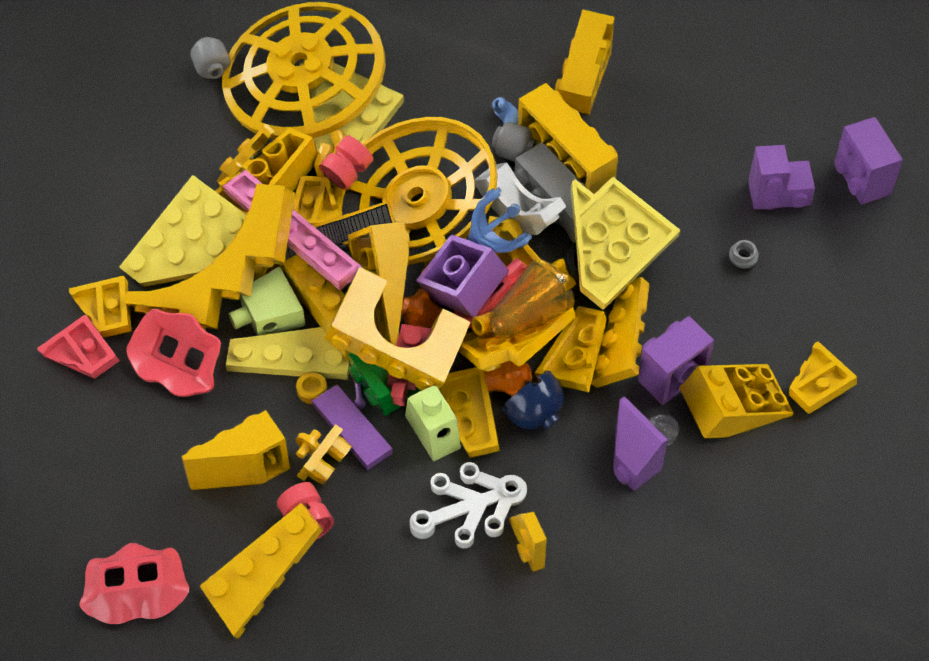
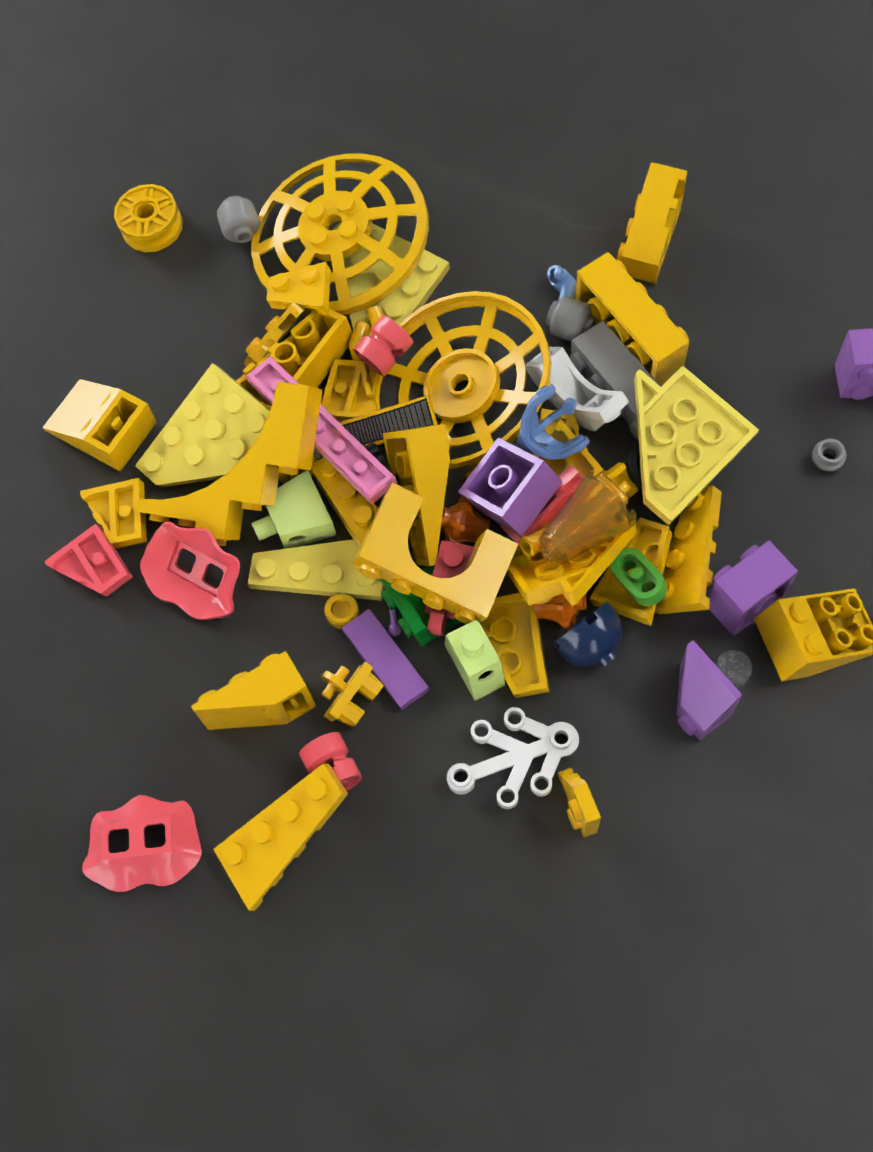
camera: 10 degrees right, 10 degrees up
(88, 229) = (102, 422): none -> yellow slope
(126, 56) = (148, 218): none -> yellow wheel
(277, 112) = (305, 286): none -> yellow wing
(577, 350) = (641, 578): none -> bright green plate

